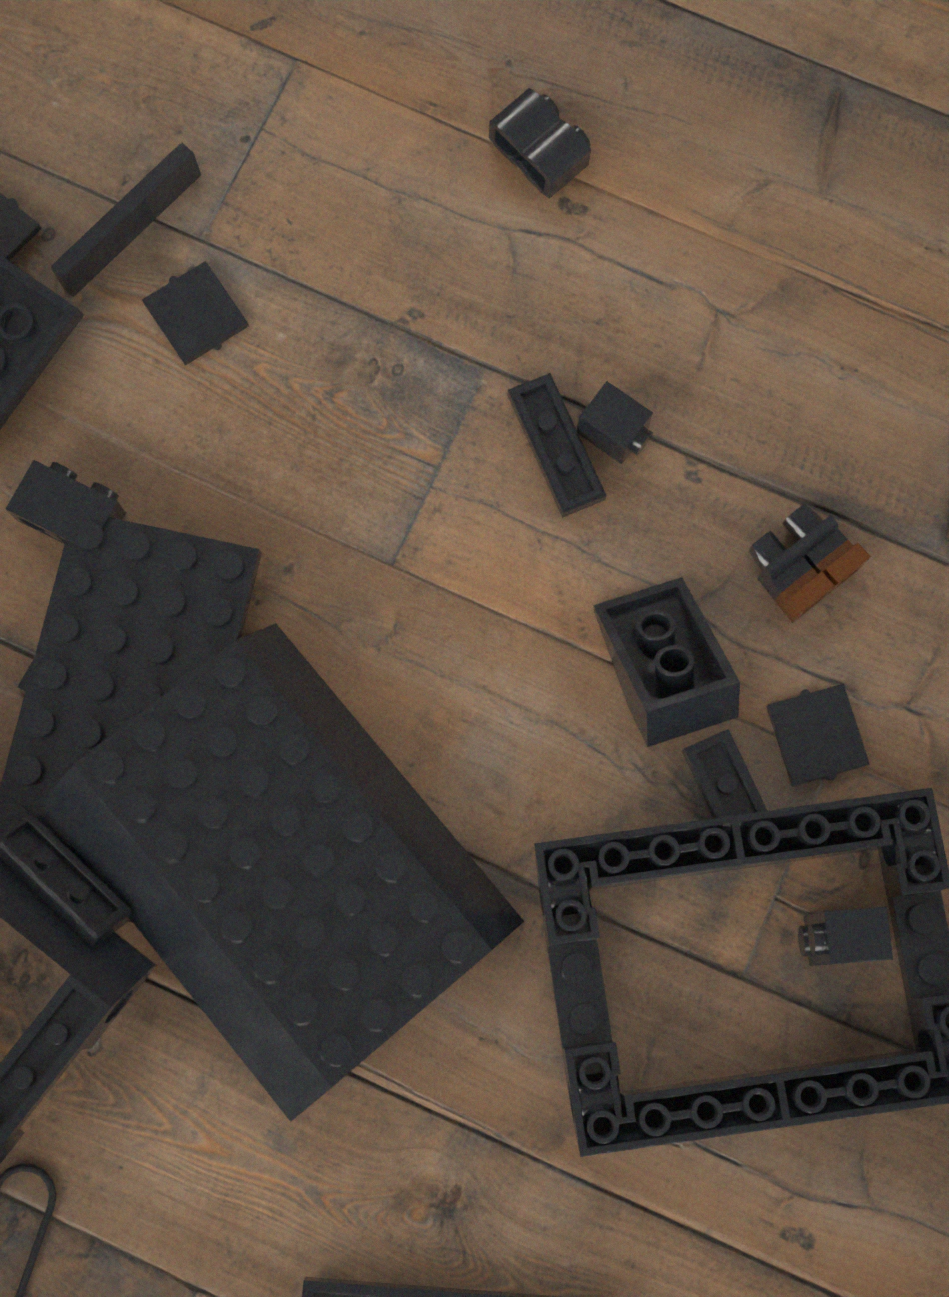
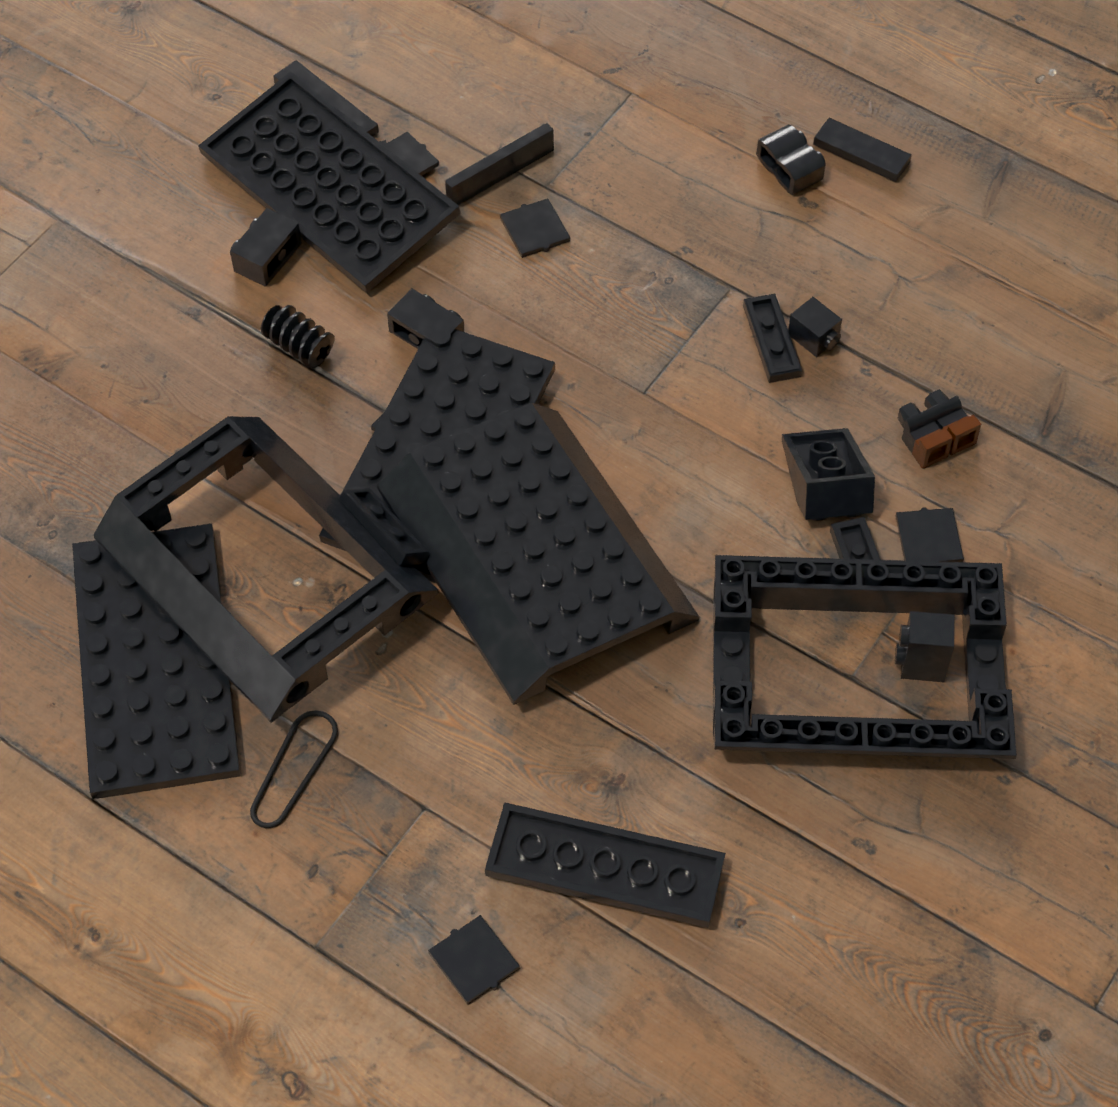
camera: 10 degrees right, 20 degrees down
(636, 106) = (862, 149): none -> black tile

